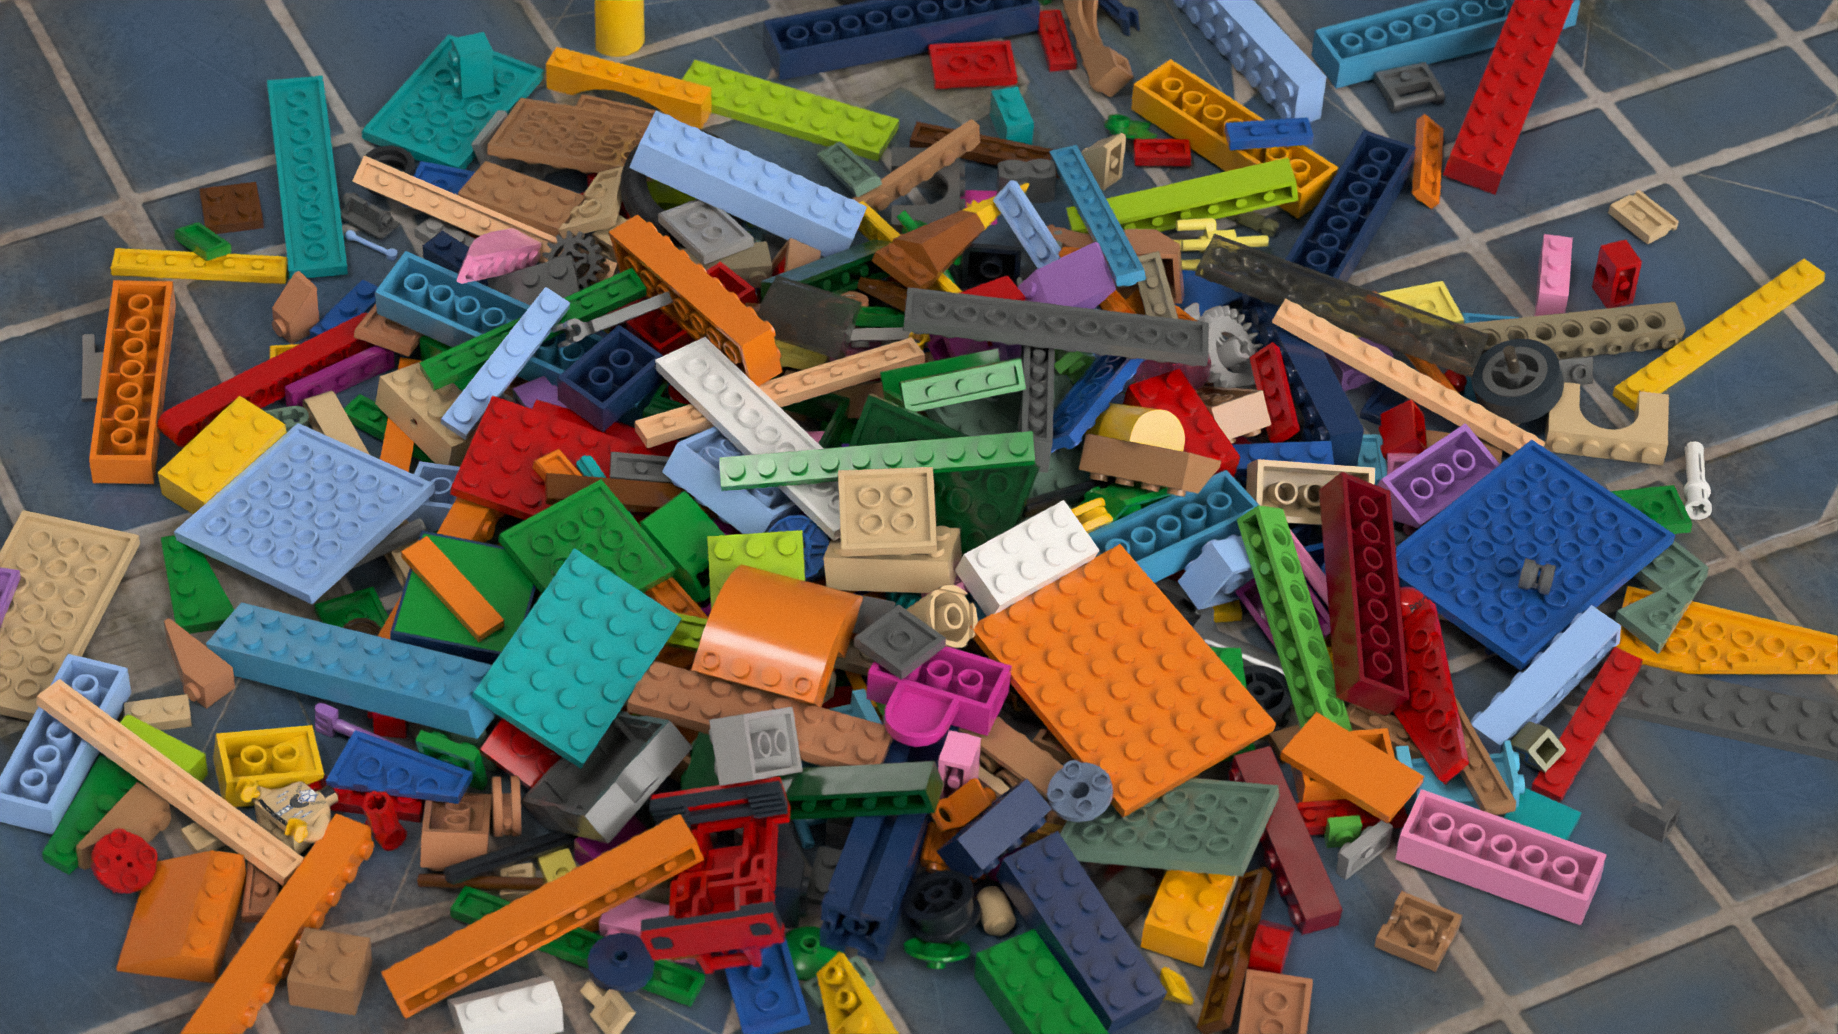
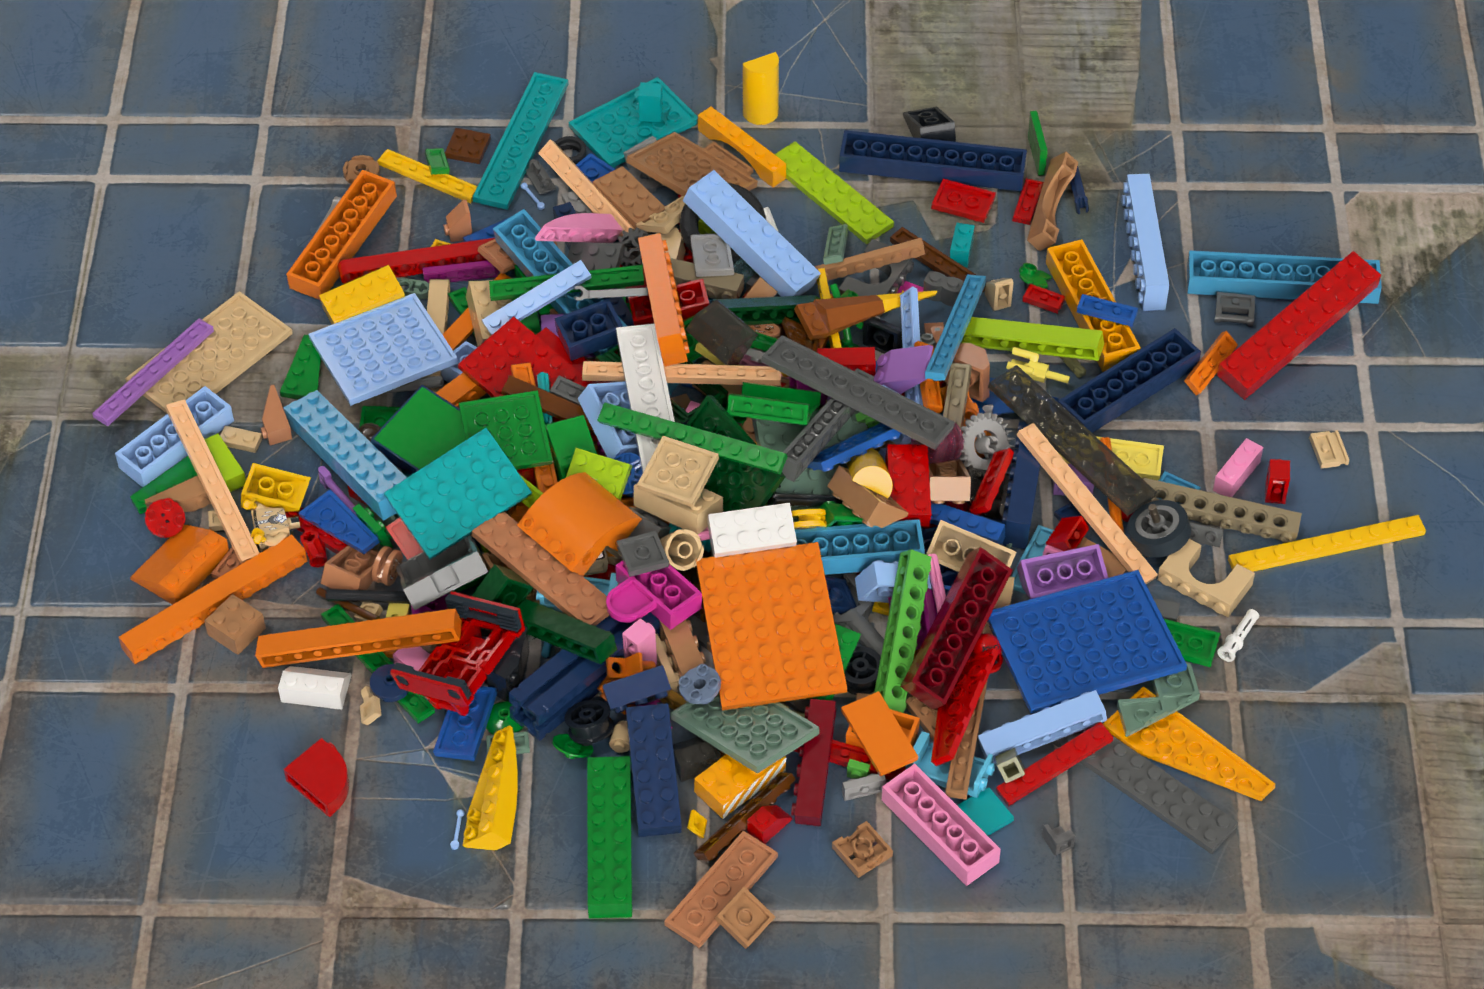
camera: 30 degrees right, 5 degrees up
(90, 301) = (359, 162): none -> medium nougat tile
(452, 588) = (418, 426): orange tile -> none
(755, 746) = (519, 585): light grey slope -> none
(1530, 573) = (1071, 657): dark grey wheel -> none

